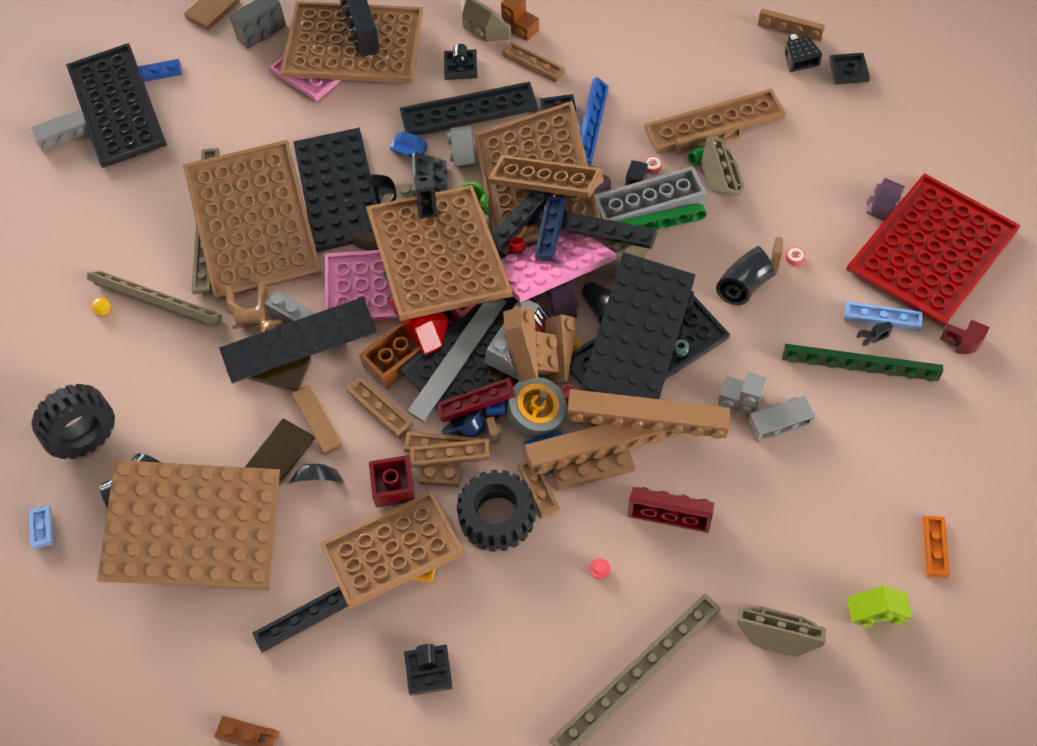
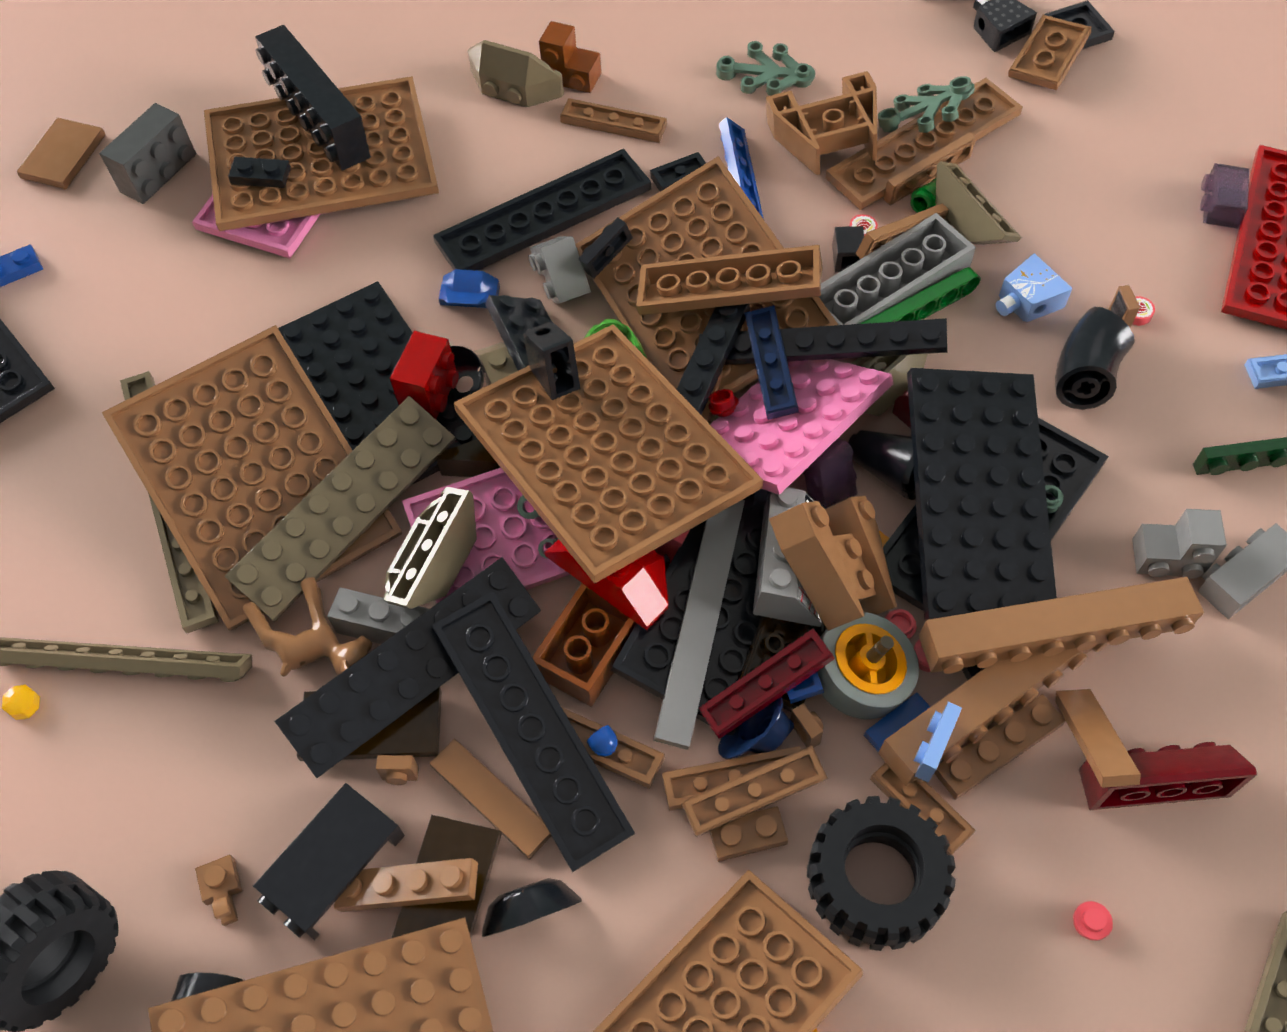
camera: 20 degrees left, 0 degrees up
(168, 421) = (217, 885): none -> medium nougat plate
(223, 423) = (325, 859): none -> black panel
(257, 447) = (410, 885): none -> medium nougat plate
(274, 391) = (397, 769): none -> medium nougat plate
(292, 248) = (340, 508): none -> dark tan plate
(313, 47) = (259, 172): none -> black plate
(330, 284) = (433, 551): none -> dark tan wedge
(347, 390) = (533, 731): none -> black plate
(360, 188) = (425, 372): none -> red brick
(381, 405) = (603, 741): none -> blue hinge
(391, 481) = (675, 874): dark red brick -> none
(460, 63) = (502, 146): black plate -> none
(489, 139) = (605, 248): none -> black plate
(553, 448) = (930, 753): none -> light blue plate
(640, 477) = (1097, 738): none -> medium nougat tile
(651, 172) = (878, 237): none -> medium nougat tile
(656, 58) = (795, 74): none -> sand green plant
(657, 95) = (828, 123): none -> medium nougat wedge
(734, 228) = (1032, 291): none -> light blue torso
(742, 93) = (957, 90): none -> sand green plant
(821, 81) = (1049, 52): none -> medium nougat tile

